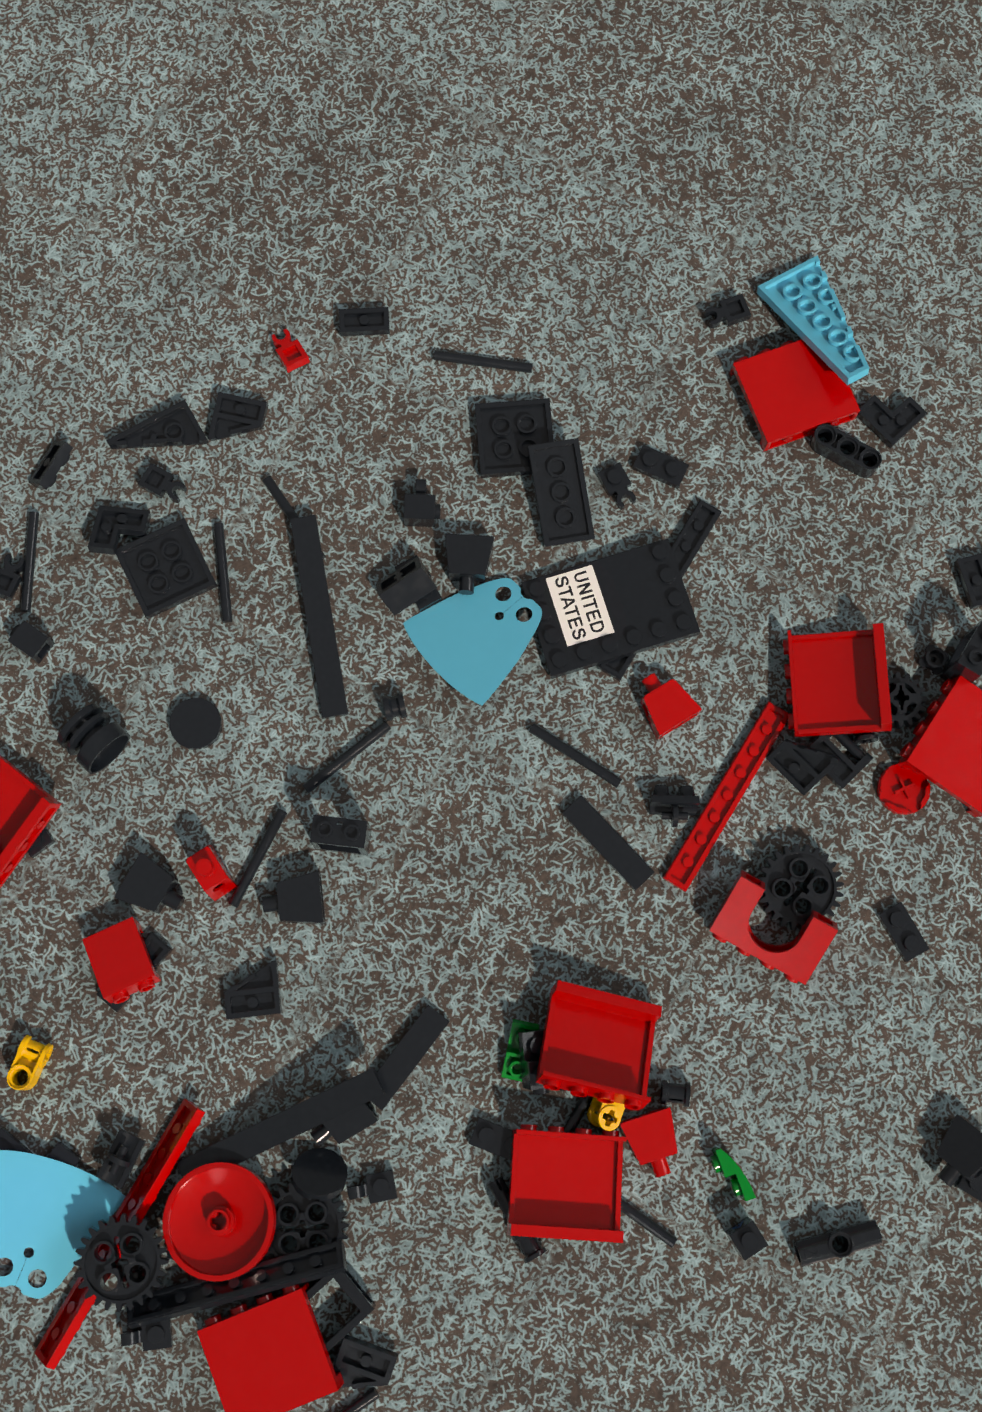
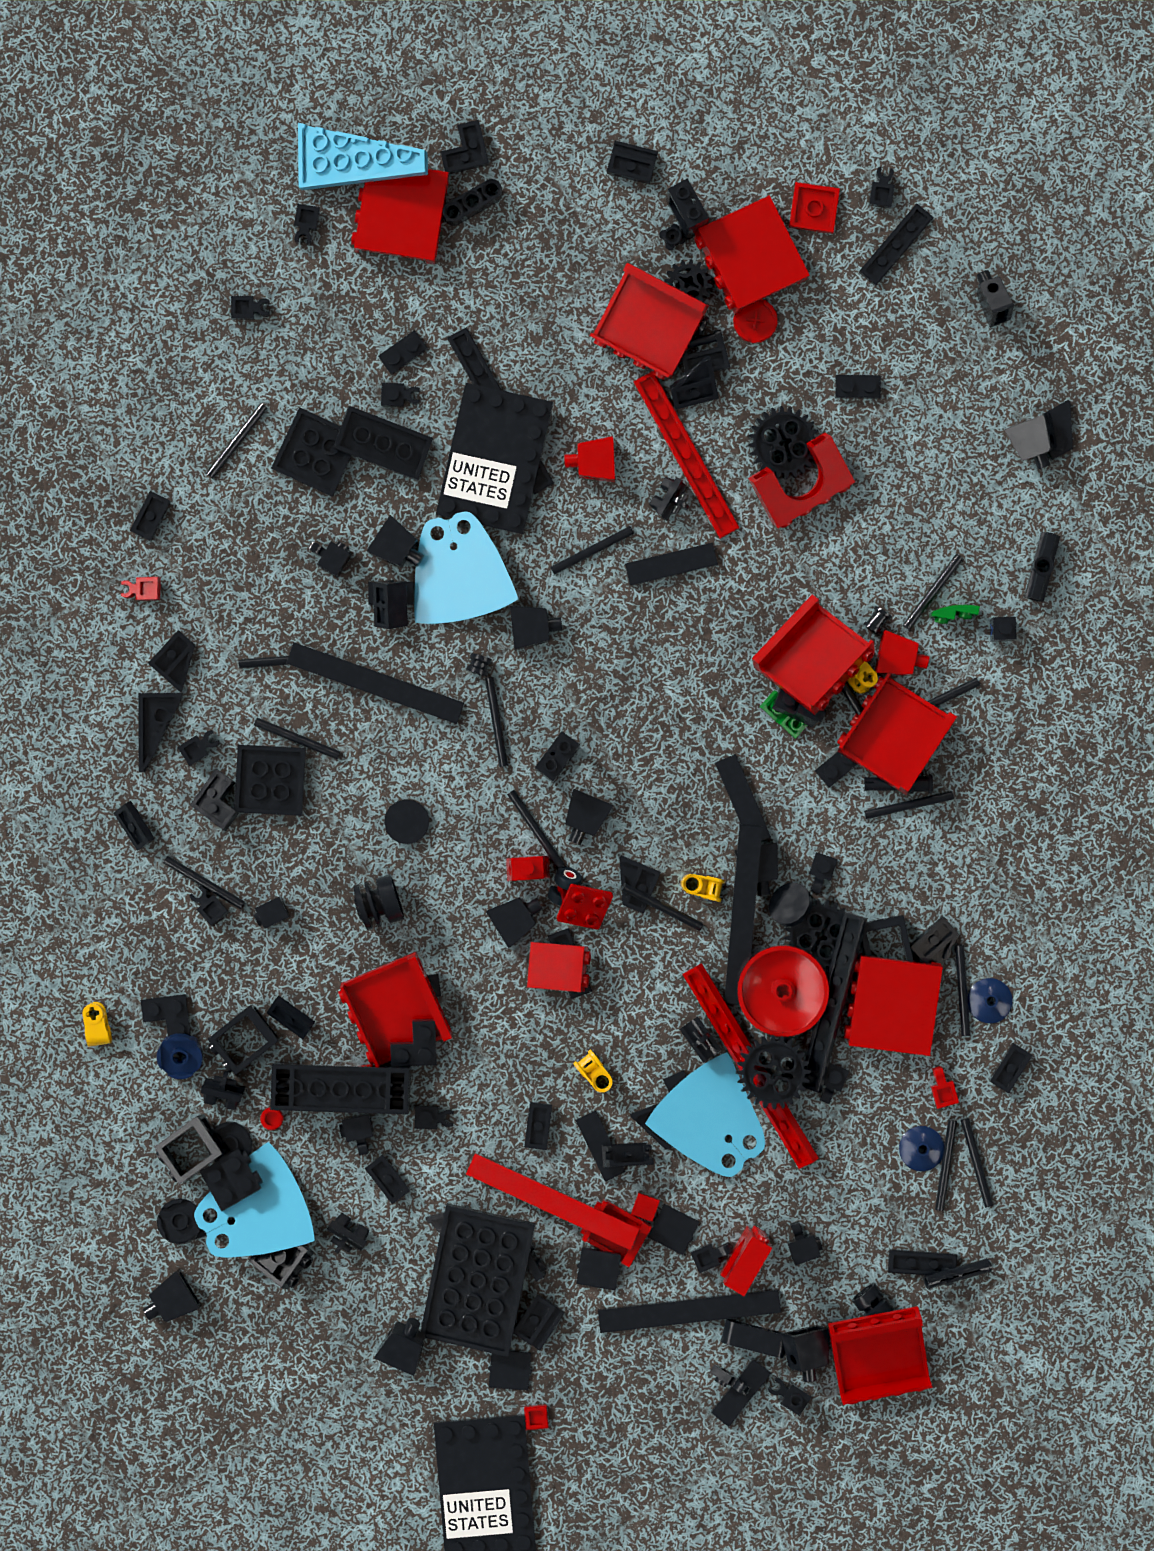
camera: 60 degrees left, 10 degrees up
(199, 944) = (578, 903): none -> red plate
(244, 1036) = (661, 906): none -> black bar
(289, 1069) = (704, 887): none -> yellow piece
(462, 737) = (532, 626): none -> black torso
(499, 1244) = (907, 805): none -> black bar
(615, 300) = (244, 307): none -> black plate
(740, 1136) = (932, 592): none -> black bar

